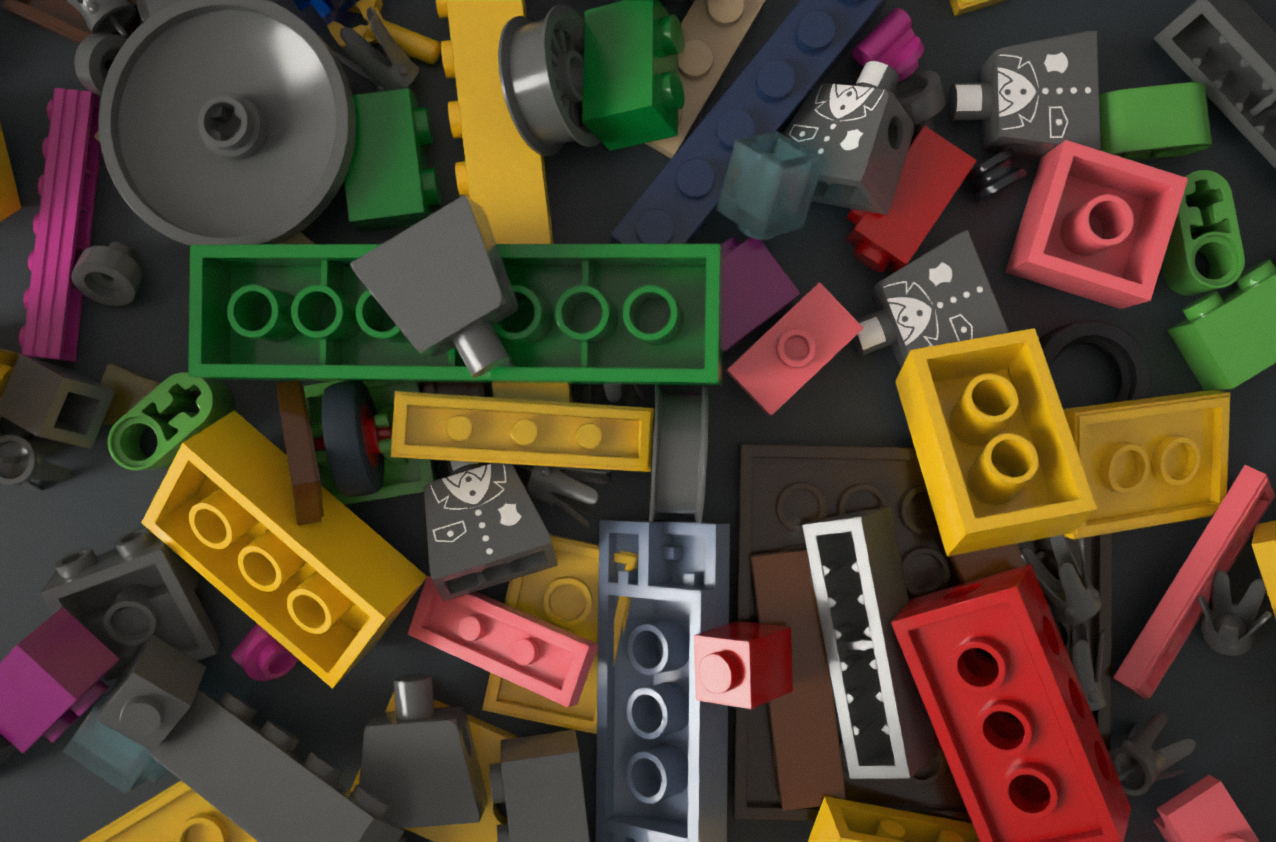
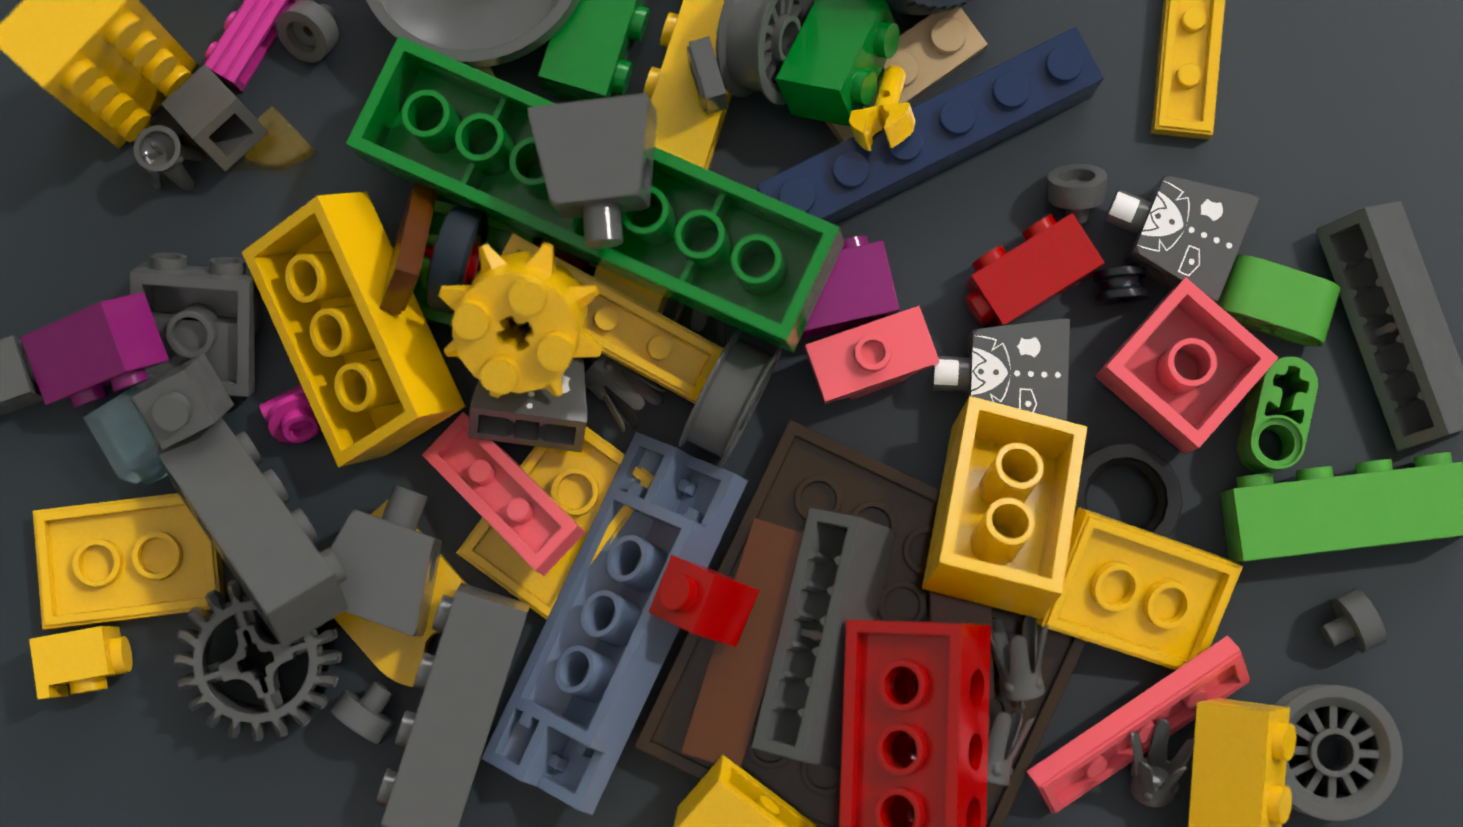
camera: 25 degrees right, 5 degrees down
(172, 398) = (314, 160): bright green beam -> none
(442, 479) = (533, 292): none -> yellow brick
(513, 148) = (706, 75): none -> dark grey tile
(703, 106) = (887, 112): none -> yellow bar
(769, 185) = (911, 203): clear light blue brick -> none
(859, 135) = (997, 198): dark grey torso -> none
(892, 44) = (1075, 135): dark pink plate -> none

